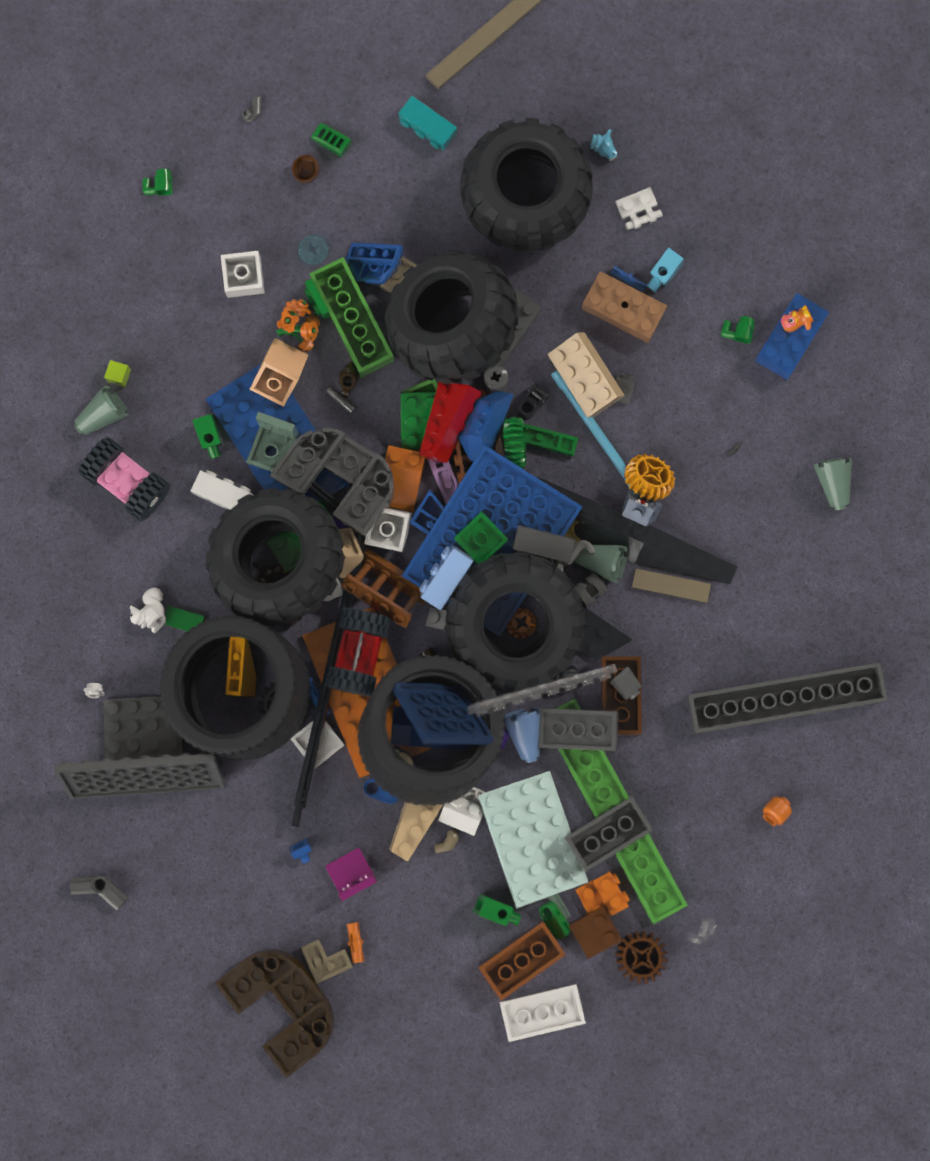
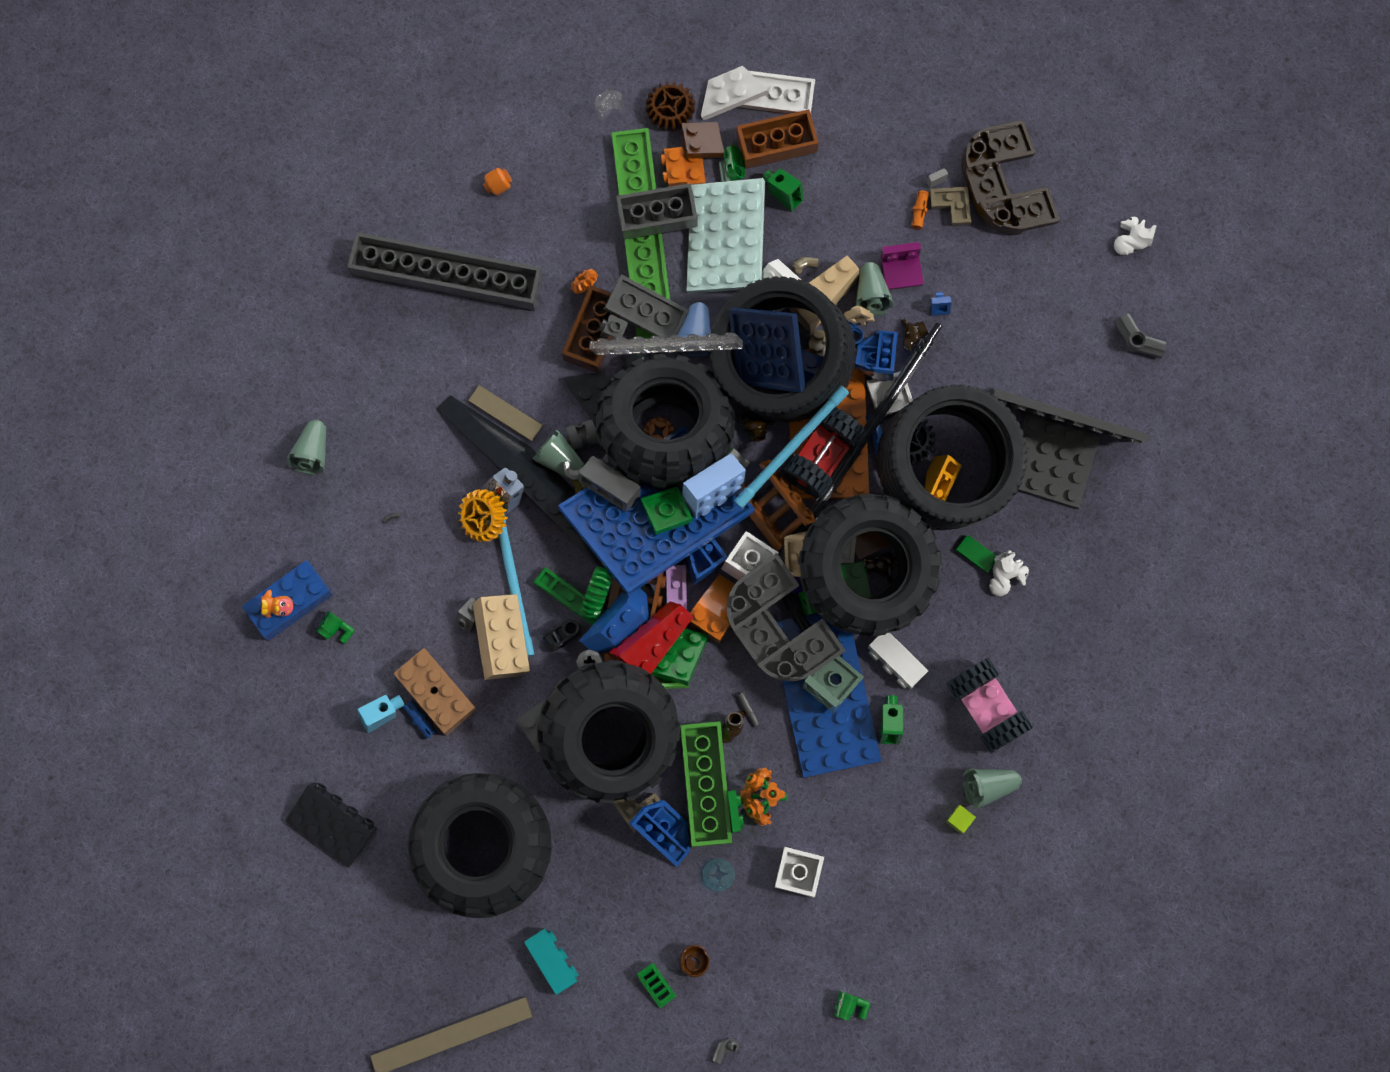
camera: 160 degrees left, 5 degrees down
(94, 690) = (1085, 519): white plate -> none
(131, 994) = (1137, 239): none -> white animal
(279, 372) = (798, 754): light nougat slope -> none
(316, 810) = (913, 334): none -> dark brown animal
(342, 772) = (877, 355): none -> blue wedge
(349, 982) = (937, 178): none -> light grey tile
(364, 695) = (833, 401): none -> medium azure piece
(371, 838) = (873, 290): none -> sand green cone
(375, 806) = (859, 314): none -> tan plate
(587, 994) = (731, 91): none -> white wing
(601, 694) = (612, 327): none -> dark grey bracket
(604, 145) = (383, 866): medium azure animal -> none
(626, 684) = (586, 329): dark grey slope -> none
(637, 203) = (377, 794): white plate -> none
(650, 733) = (583, 281): none -> orange gear
(665, 164) = (331, 823): none -> black bracket

